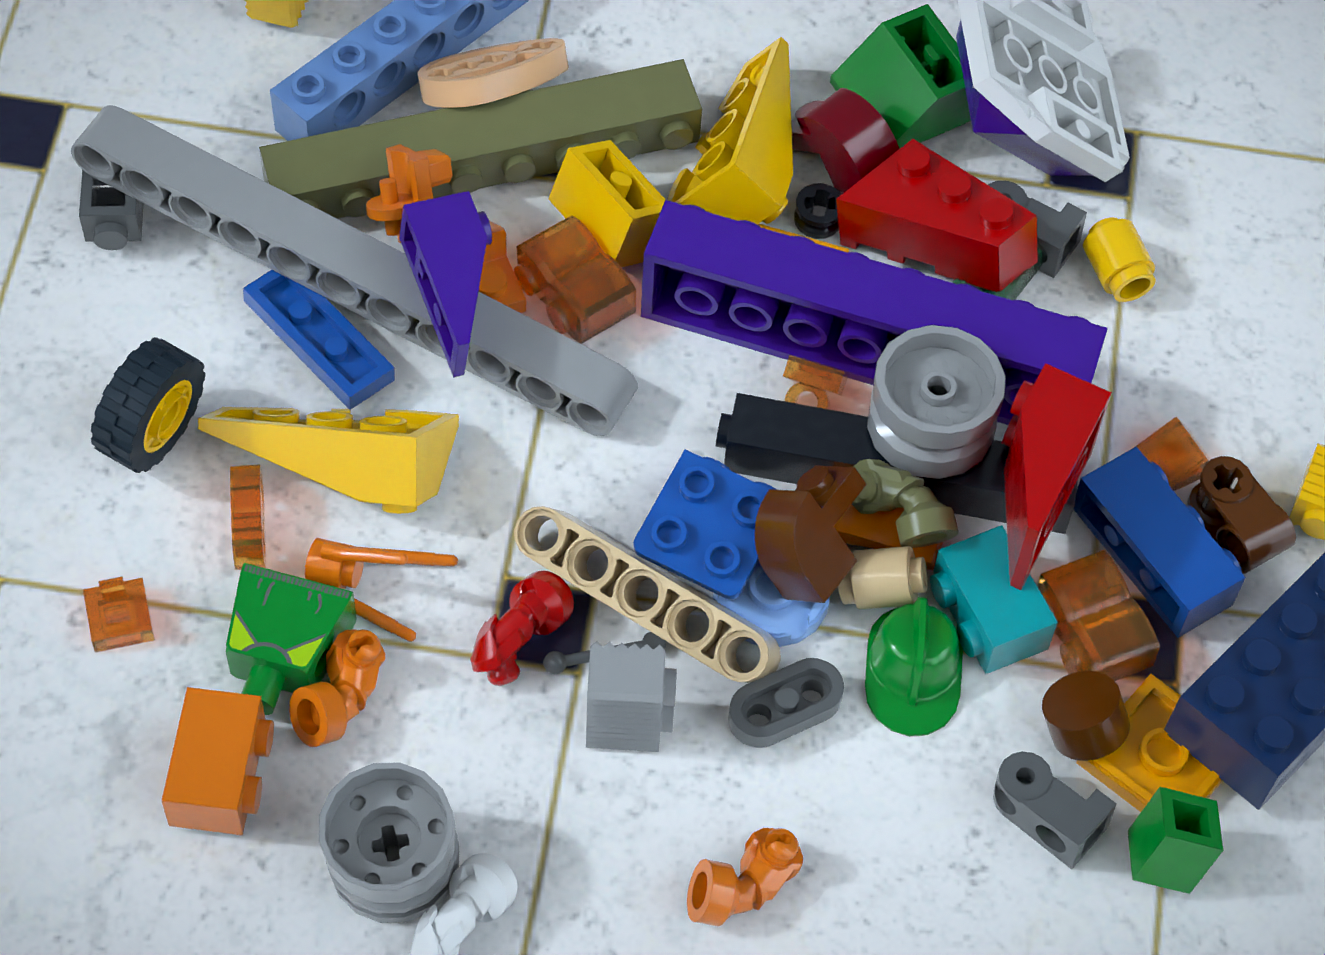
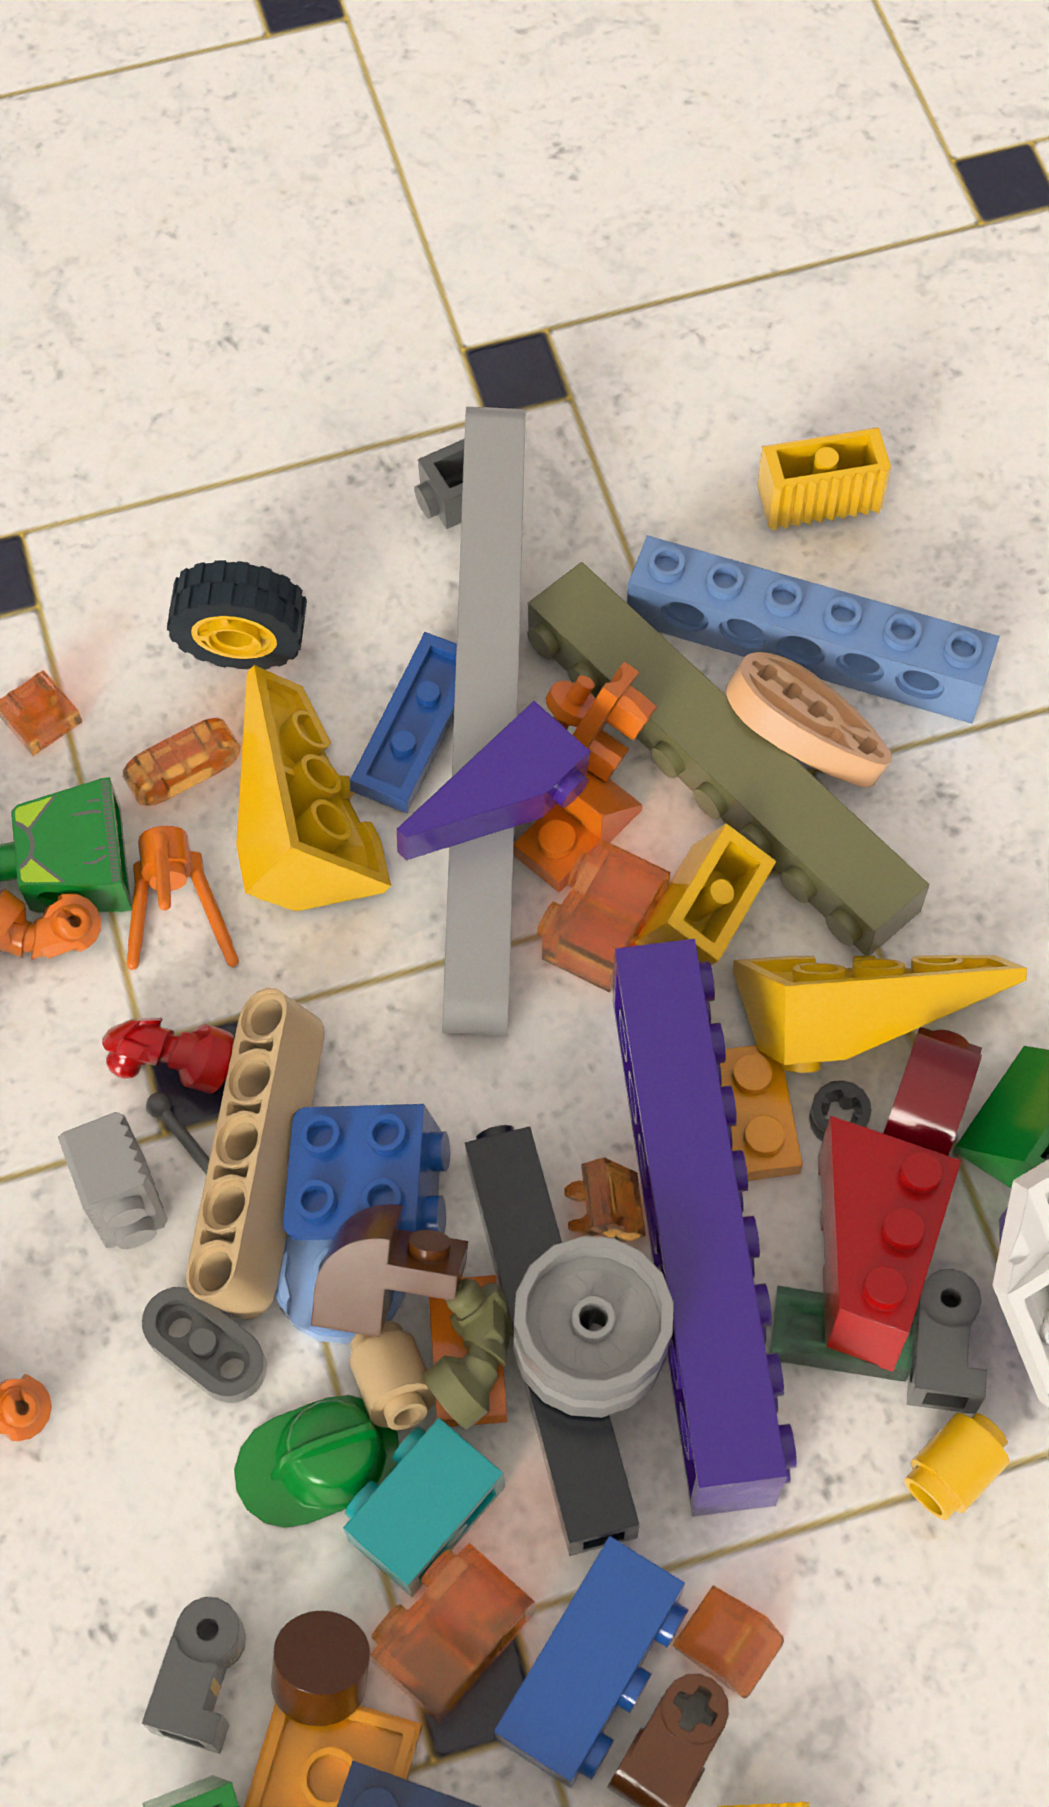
camera: 70 degrees right, 5 degrees up
(1049, 448) = (565, 1478): red slope -> none

